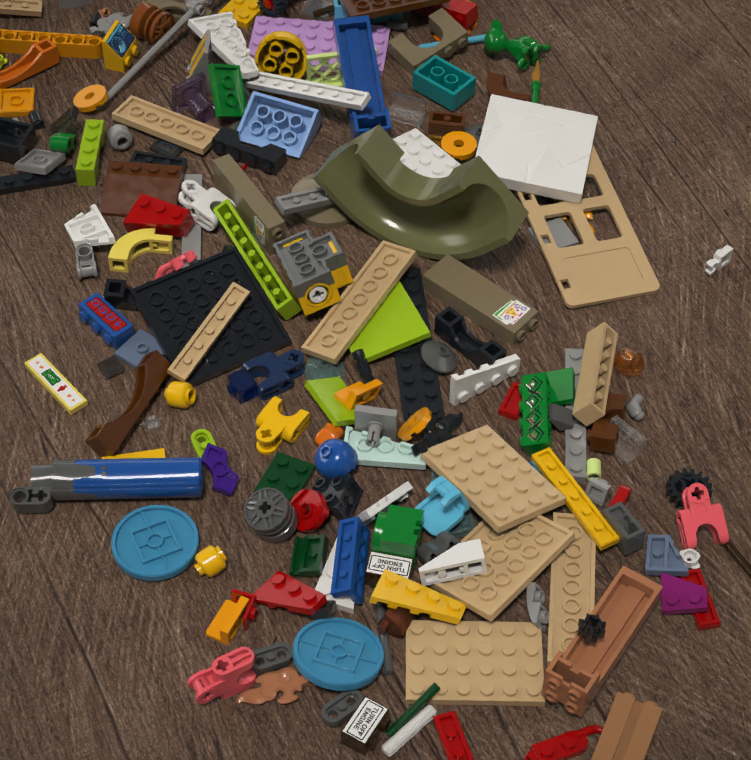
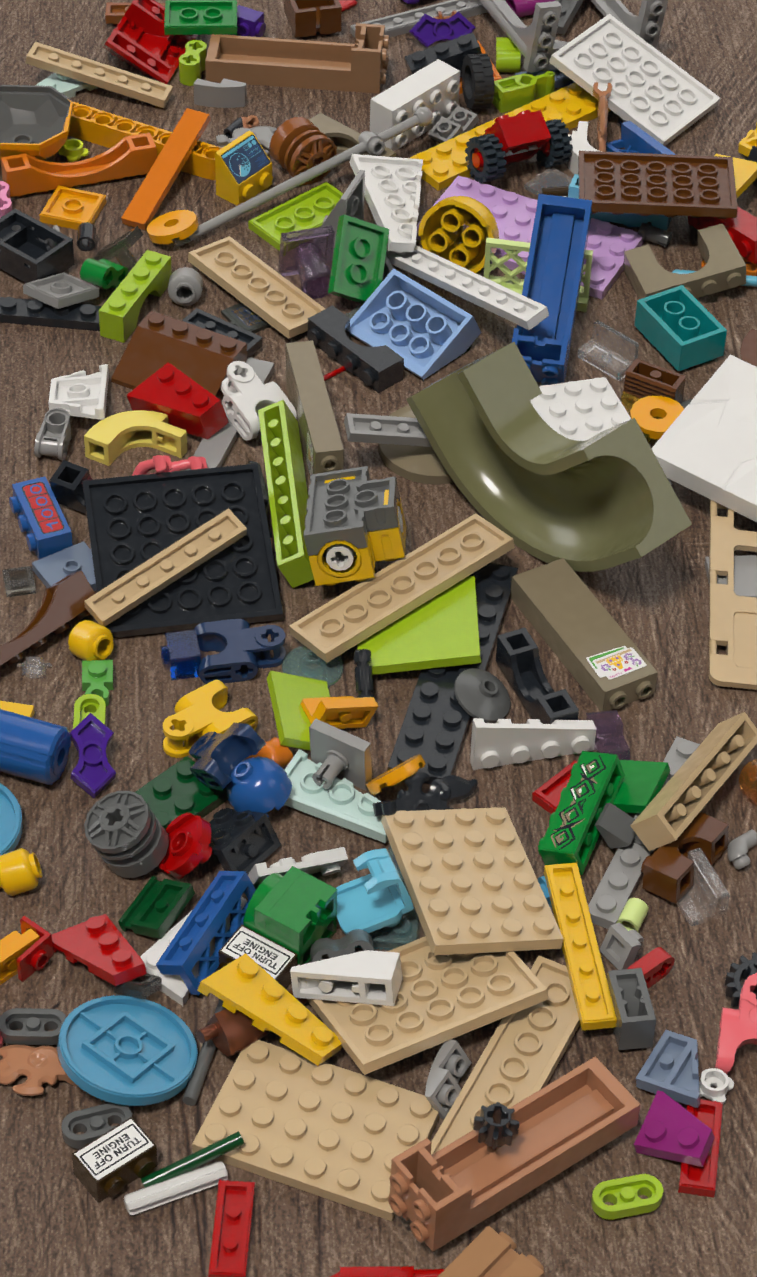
camera: 20 degrees right, 5 degrees down
(68, 60) = (165, 169): none -> orange tile
(167, 69) = (297, 214): none -> lime tile
(194, 417) = (98, 678): none -> bright green plate
(306, 444) = (222, 753): none -> dark blue piece
(528, 363) = (609, 734): none -> clear purple slope
(671, 644) = (625, 1196): none -> lime plate

